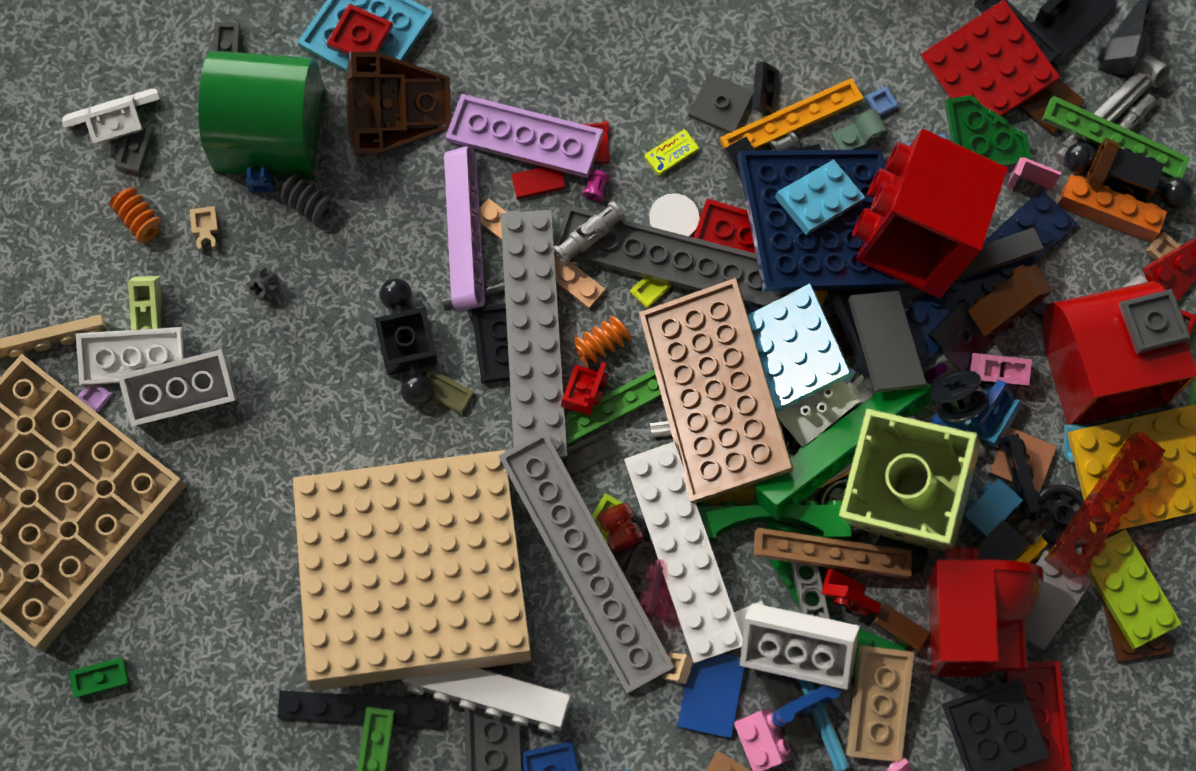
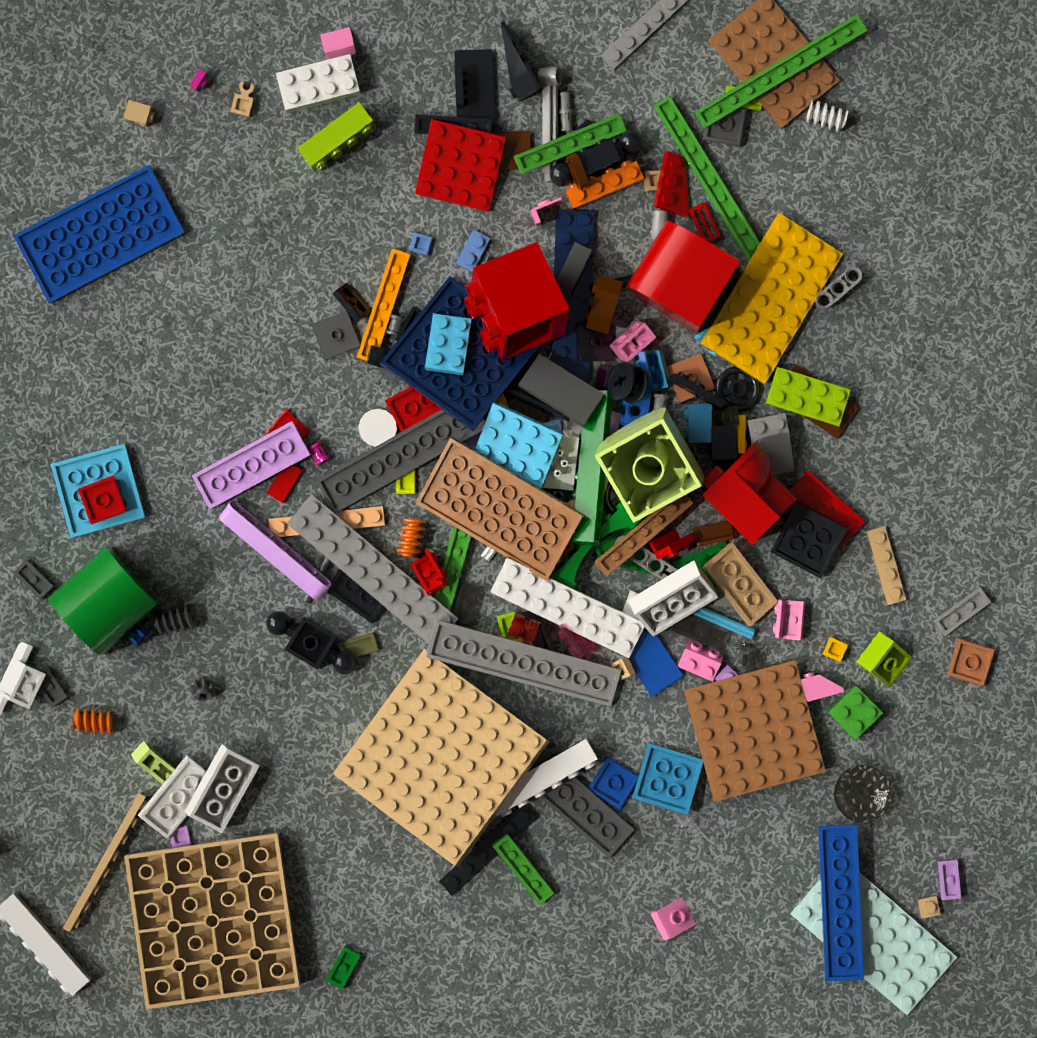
camera: 45 degrees left, 15 degrees up
(204, 224) = (134, 688): tan plate -> none
(393, 102) = (163, 520): reddish brown wedge -> none
(592, 230) = (345, 484): light grey piece -> none
(671, 152) = (338, 391): neon yellow tile -> none
(804, 704) = (704, 624): blue plate -> none
(864, 132) = (428, 277): sand green plate -> none
(985, 131) = (497, 212): green plate -> none
(1063, 553) = (751, 378): clear red brick -> none
(1154, 321) = (692, 255): dark grey plate -> none

